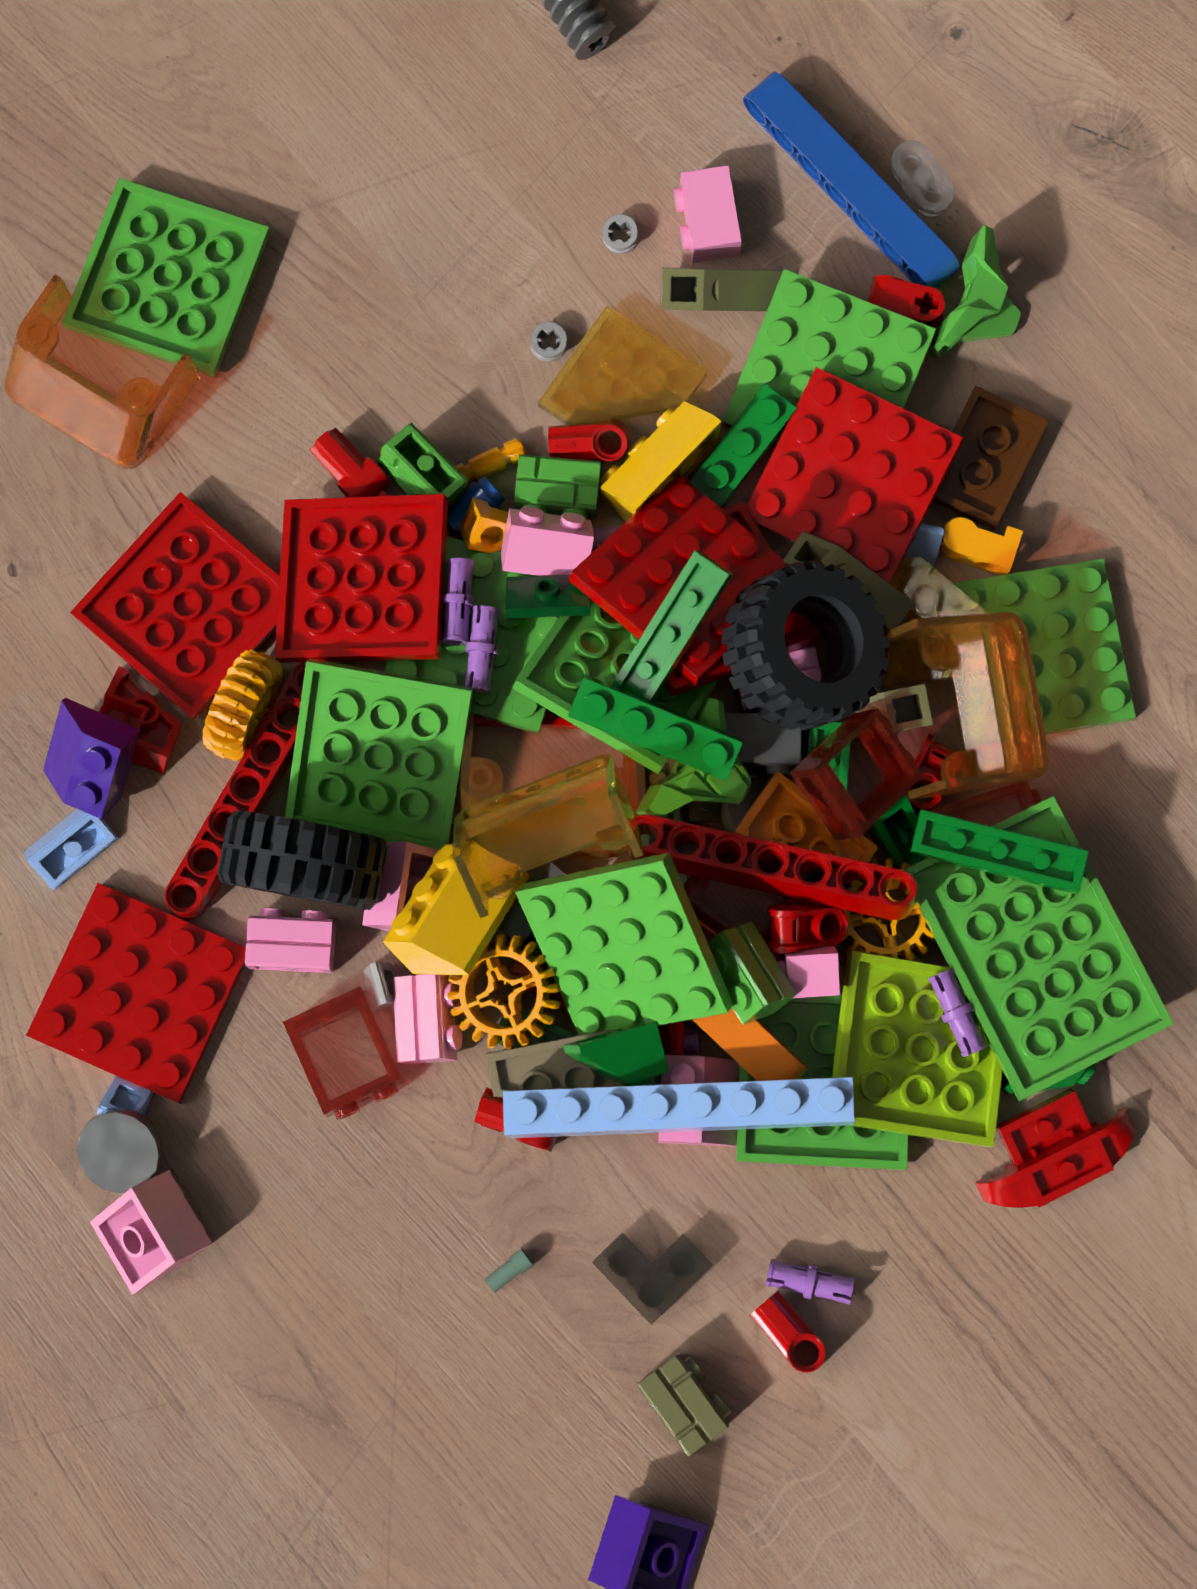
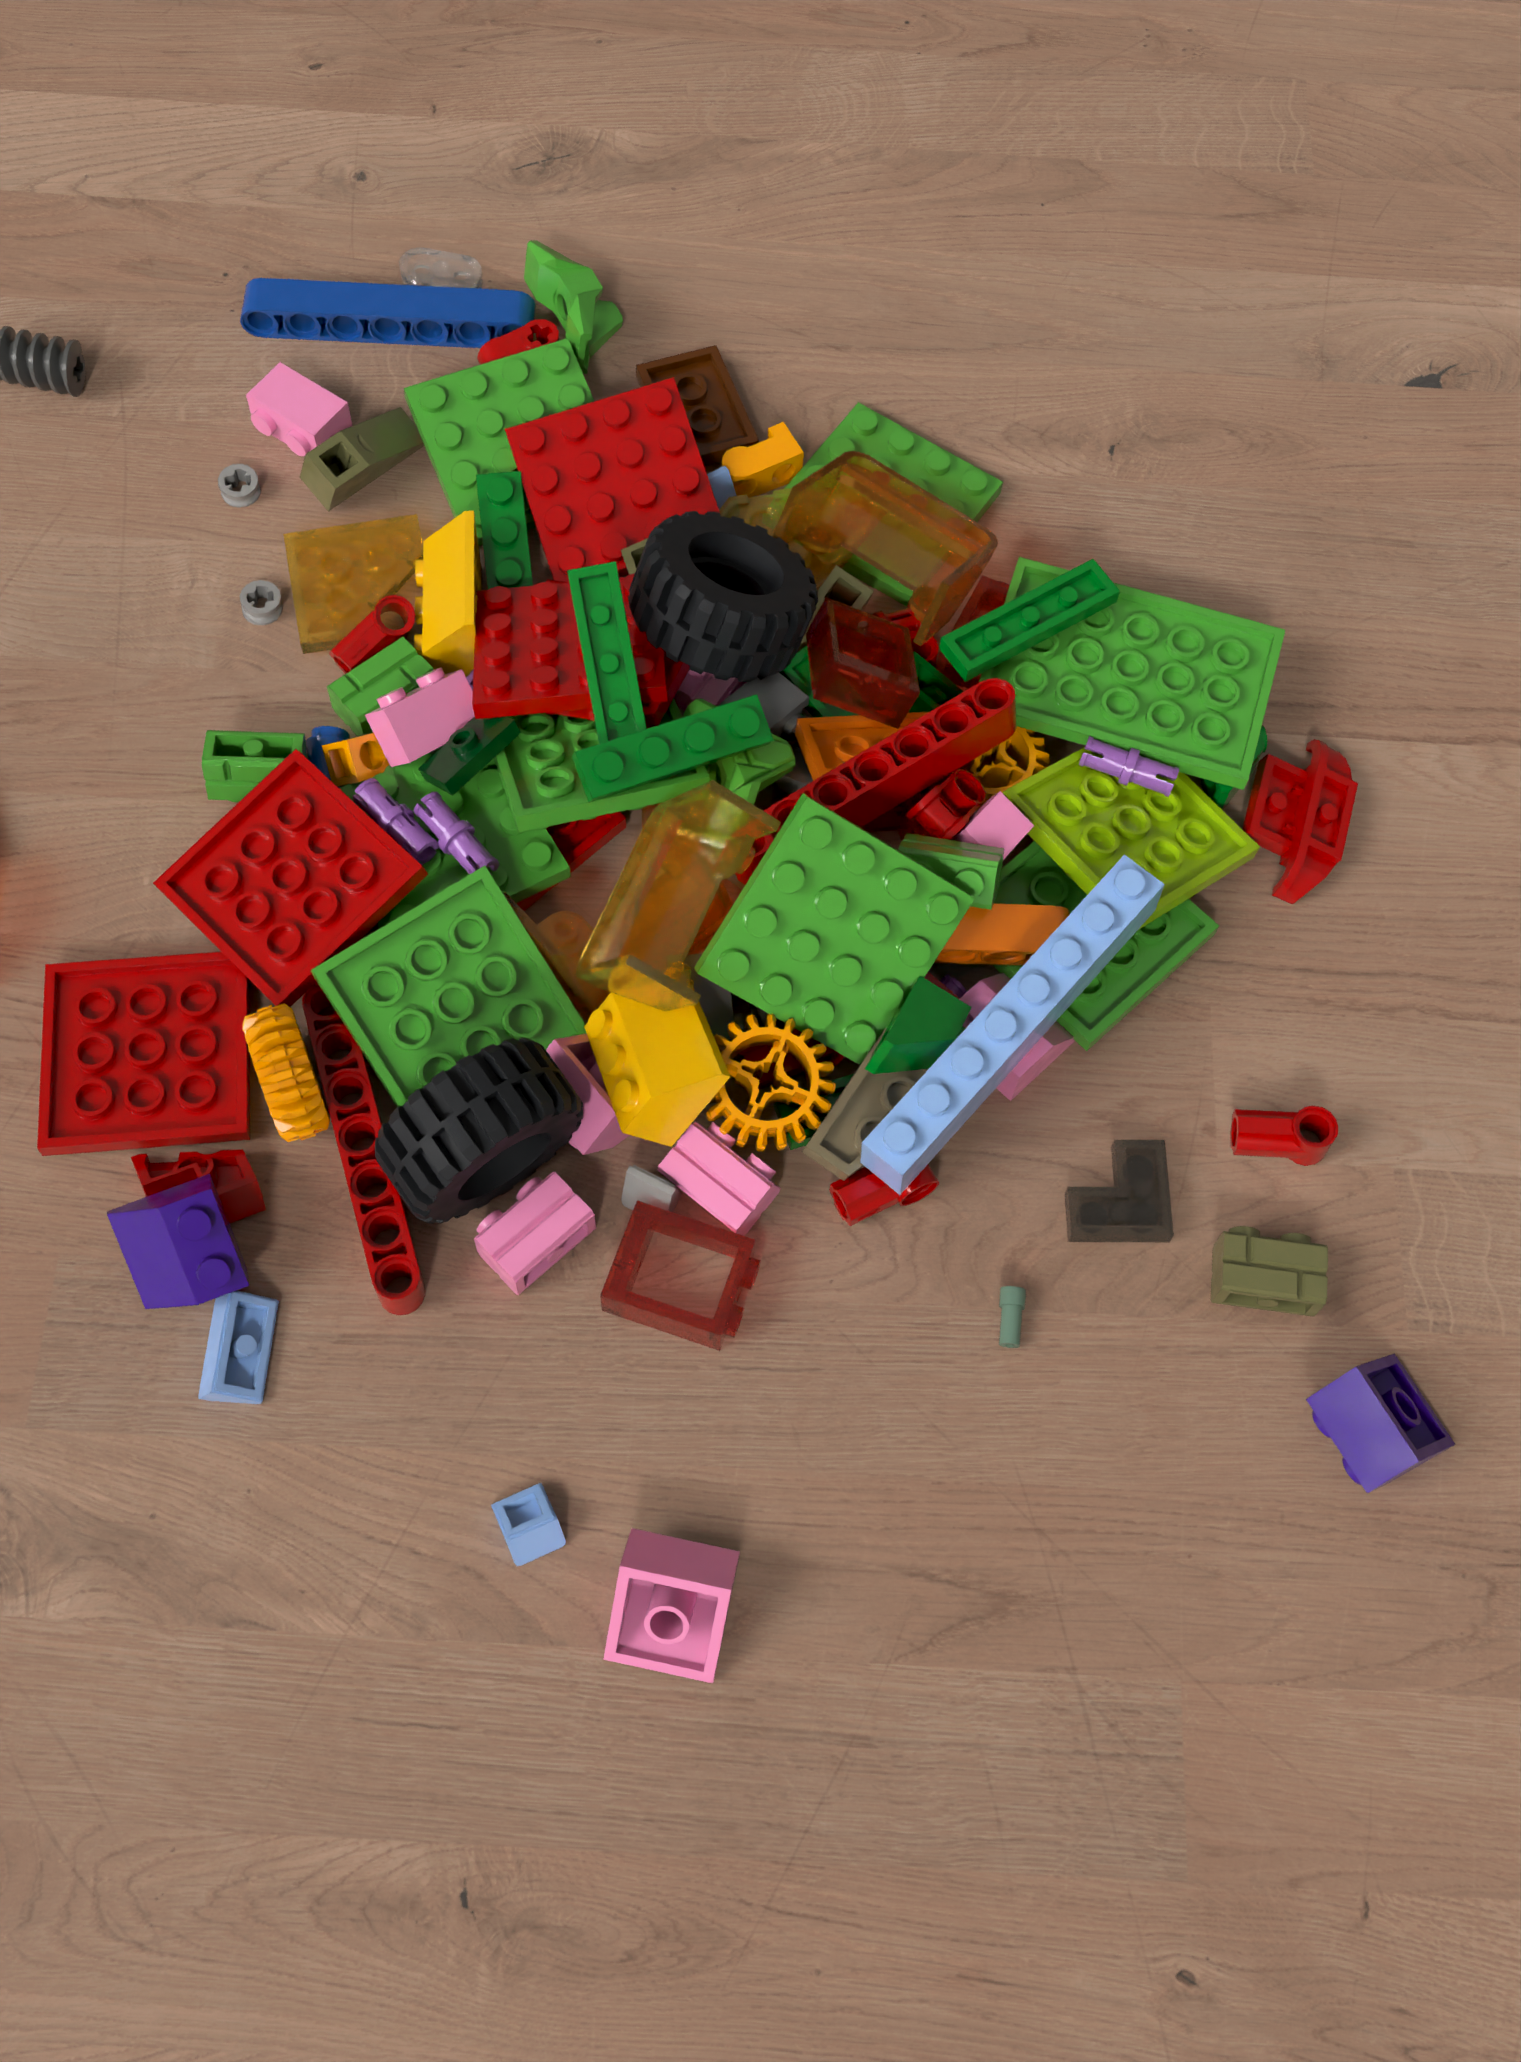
camera: 55 degrees left, 15 degrees down
(119, 1150) = (566, 1559): tile -> none
(138, 993) = (436, 1413): red plate -> none
(353, 472) = (179, 821): red piece -> none
(492, 460) = (309, 714): light orange axle -> none
(810, 1281) = (1247, 1081): medium lavender pin -> none

